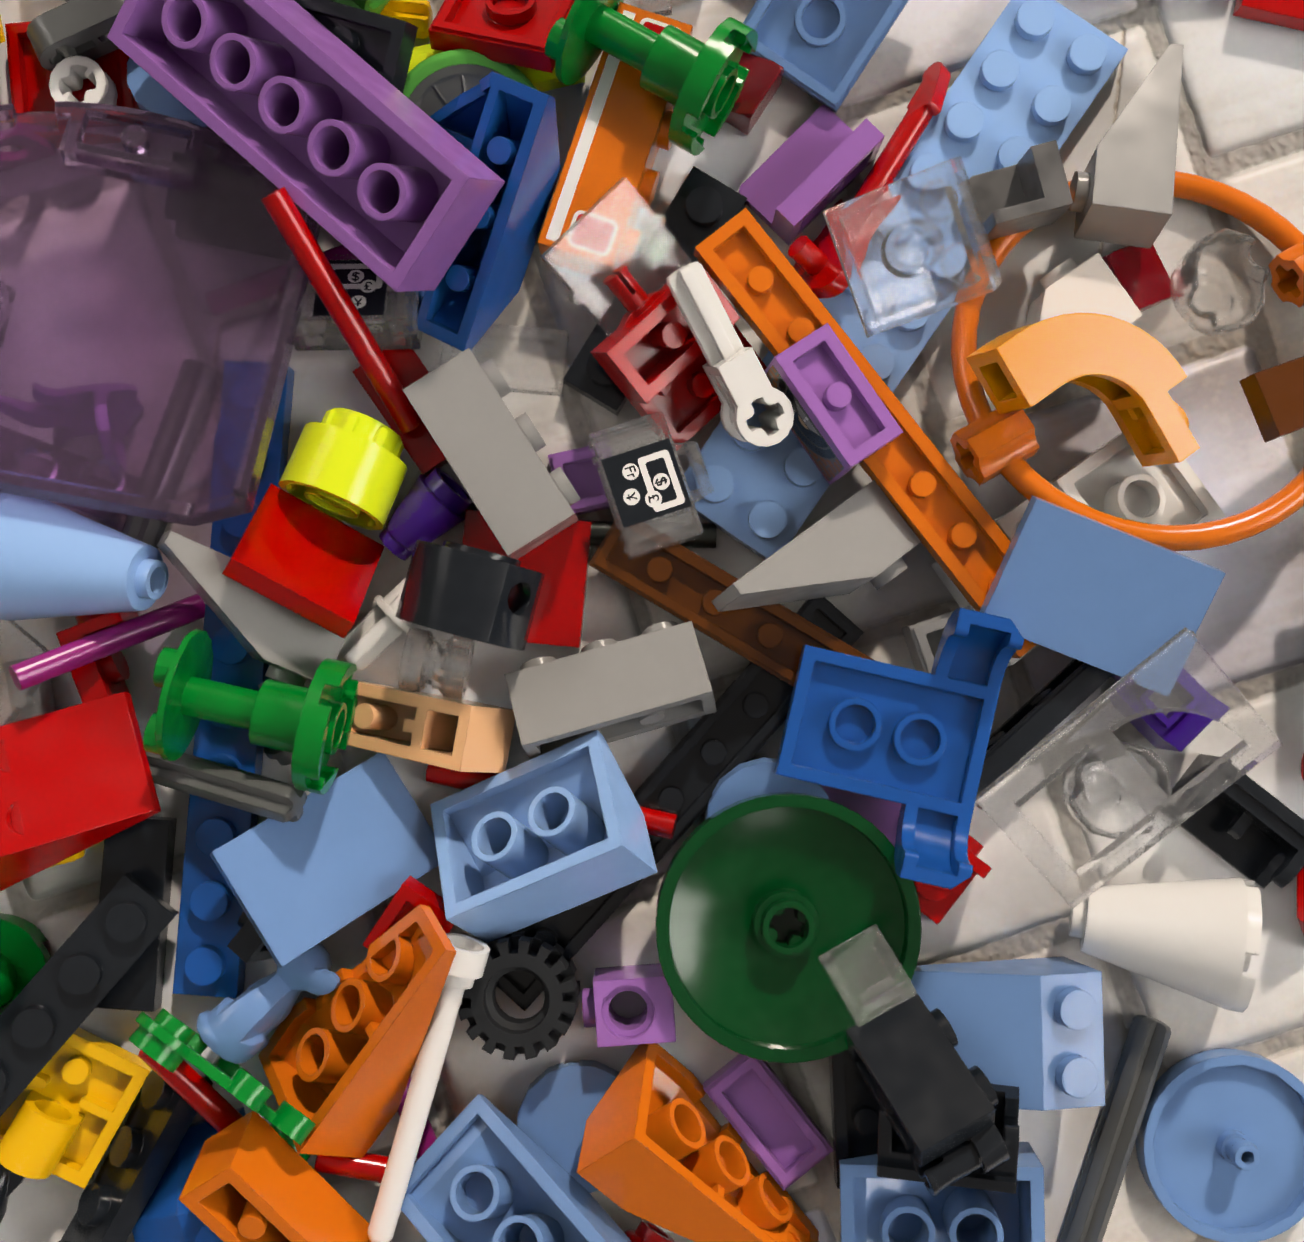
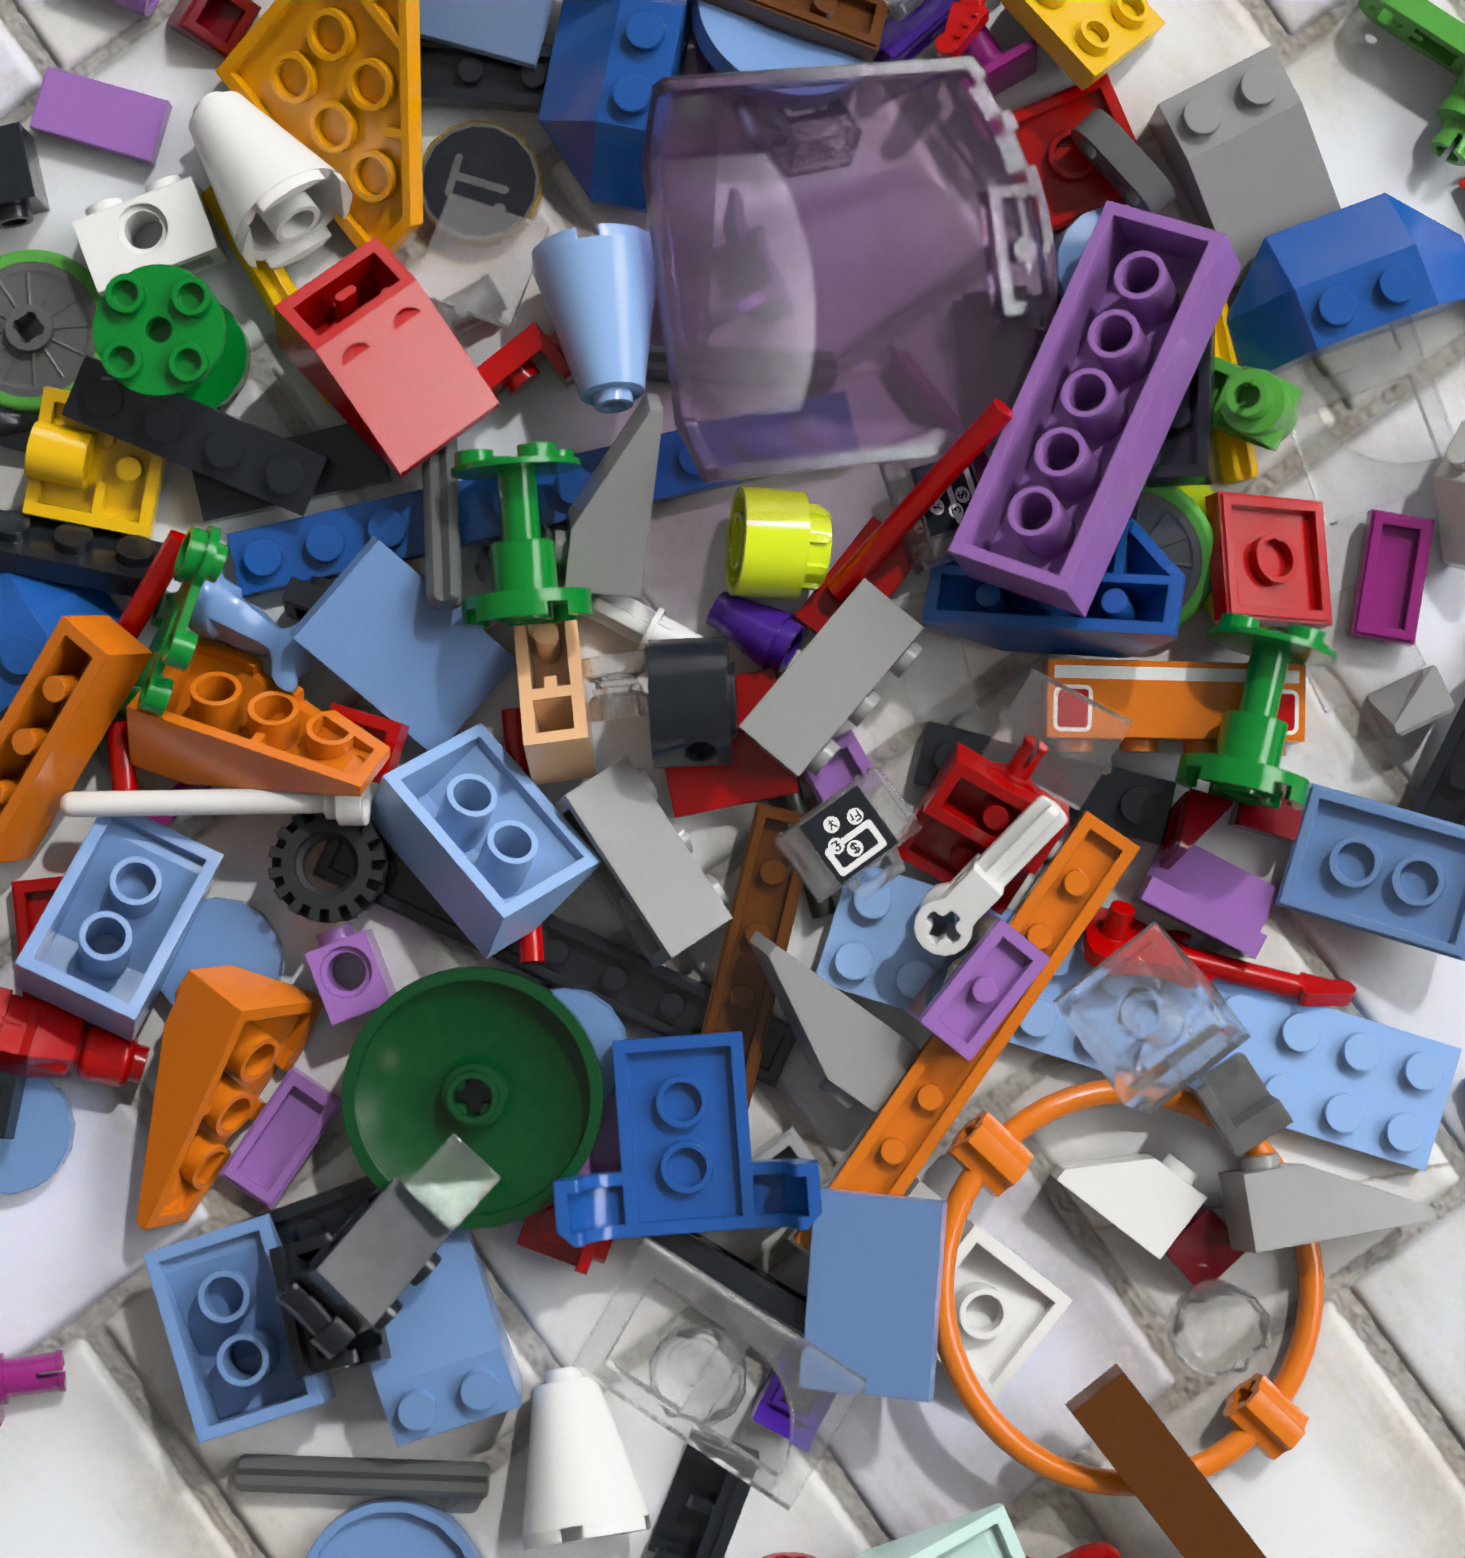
camera: 65 degrees right, 0 degrees up
(69, 77) = (1071, 156): white bush -> none
(106, 642) = (542, 374): magenta bar -> none
(305, 561) = (674, 538): red tile -> none
(736, 161) = (1188, 822): none -> dark red slope
(1107, 358) = (1081, 1171): light orange arch -> none

